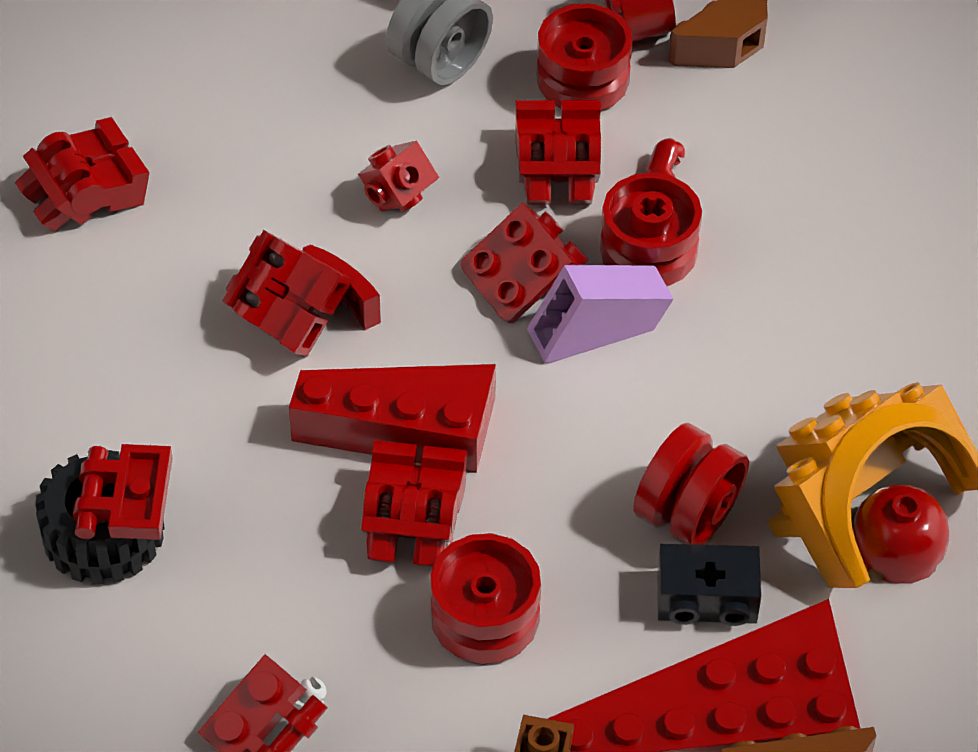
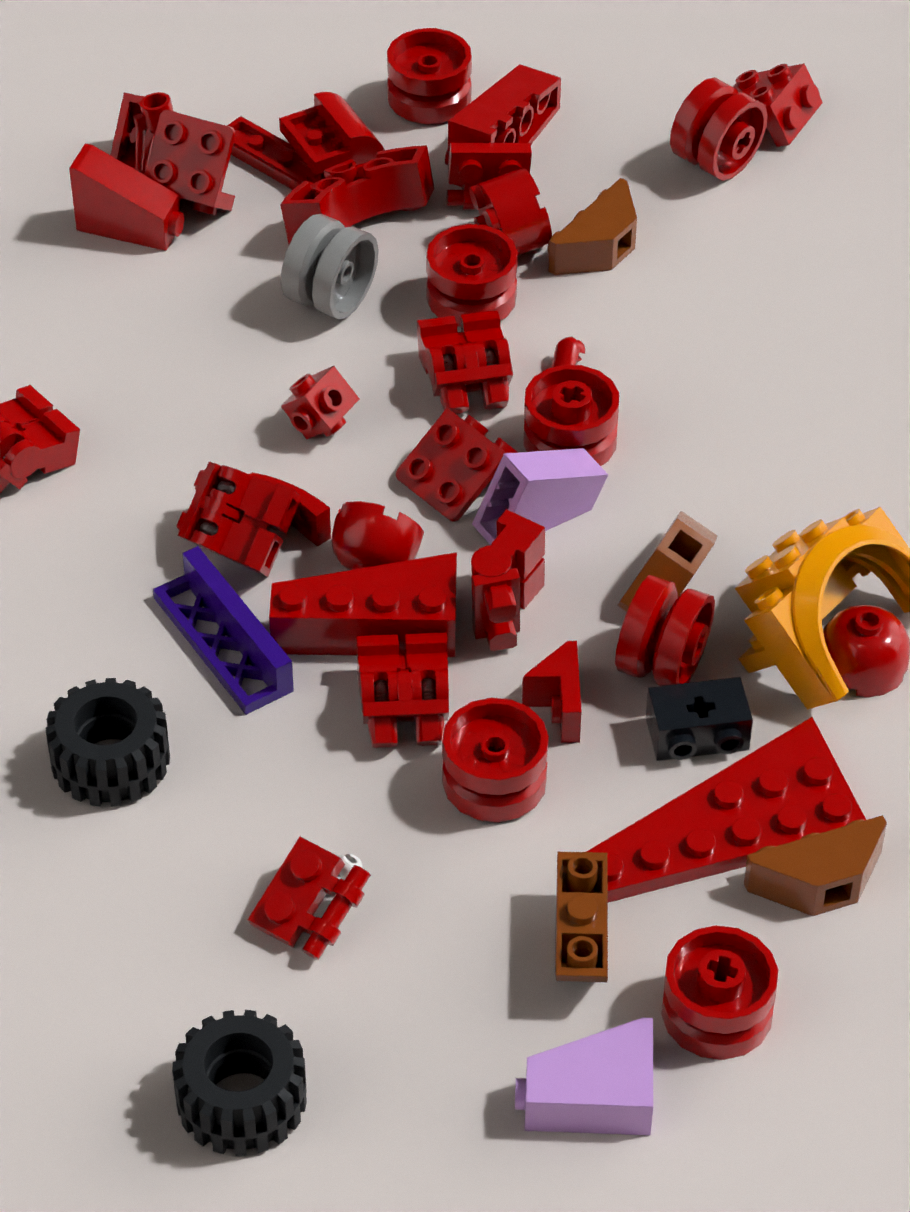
camera: 10 degrees left, 5 degrees down
(138, 496) = (148, 707): red plate -> none
(260, 402) = (235, 620): none -> dark purple fence
(414, 337) = (369, 538): none -> red cylinder
(541, 396) = (506, 579): none -> red hips
(569, 522) = (557, 685): none -> red slope
(724, 399) = (675, 556): none -> dark orange slope

